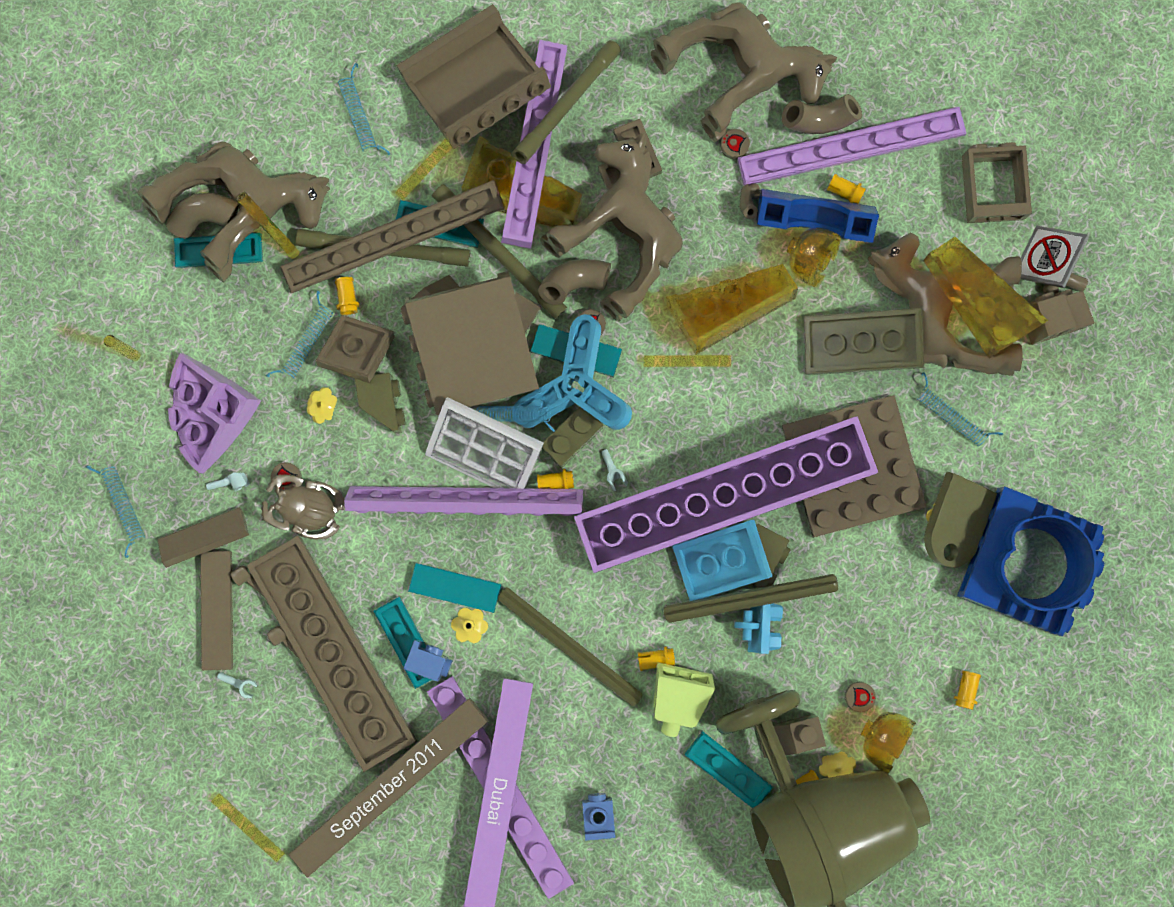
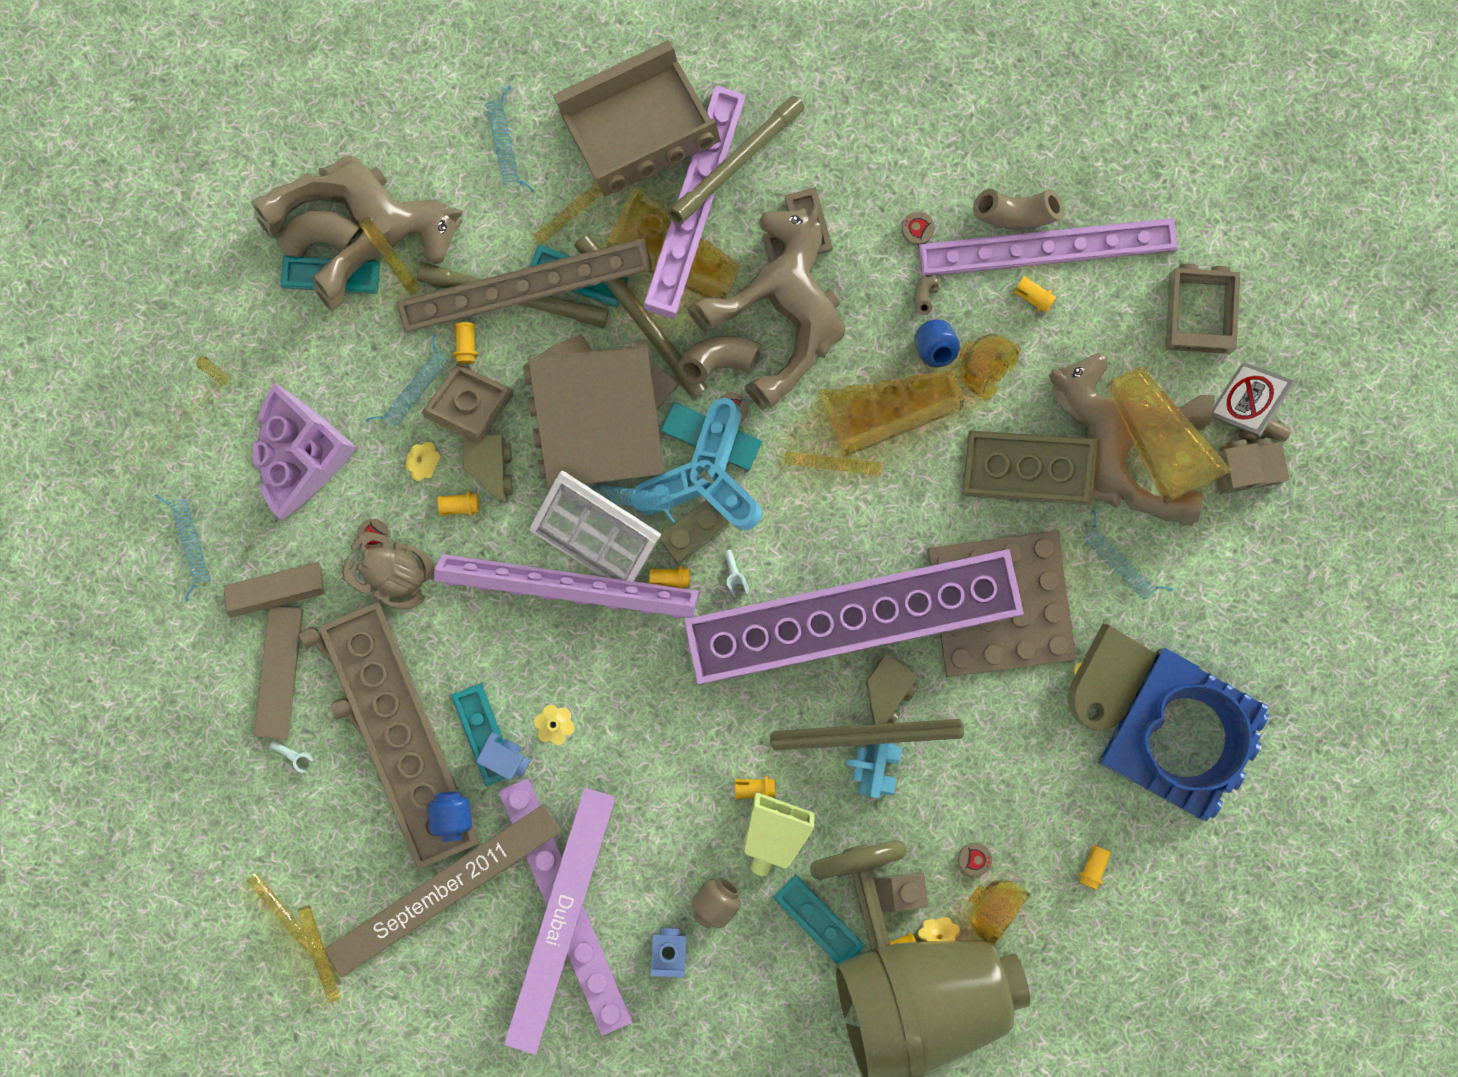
camera: 10 degrees right, 0 degrees up
(236, 479) = (318, 531): light aqua hand -> none
(284, 859) = (318, 953): none -> clear yellow bar
(359, 439) = (459, 504): none -> yellow pin
(385, 720) = (449, 816): none -> blue head
(454, 588) = (543, 681): teal tile -> none
(570, 646) = (661, 762): olive axle -> none
(635, 766) = (716, 903): none -> dark tan head
(722, 560) = (841, 689): medium azure plate -> none
(756, 55) = (953, 133): dark tan animal -> none
(765, 243) = (937, 343): none -> blue head
(794, 210) = (1026, 327): blue arch -> none

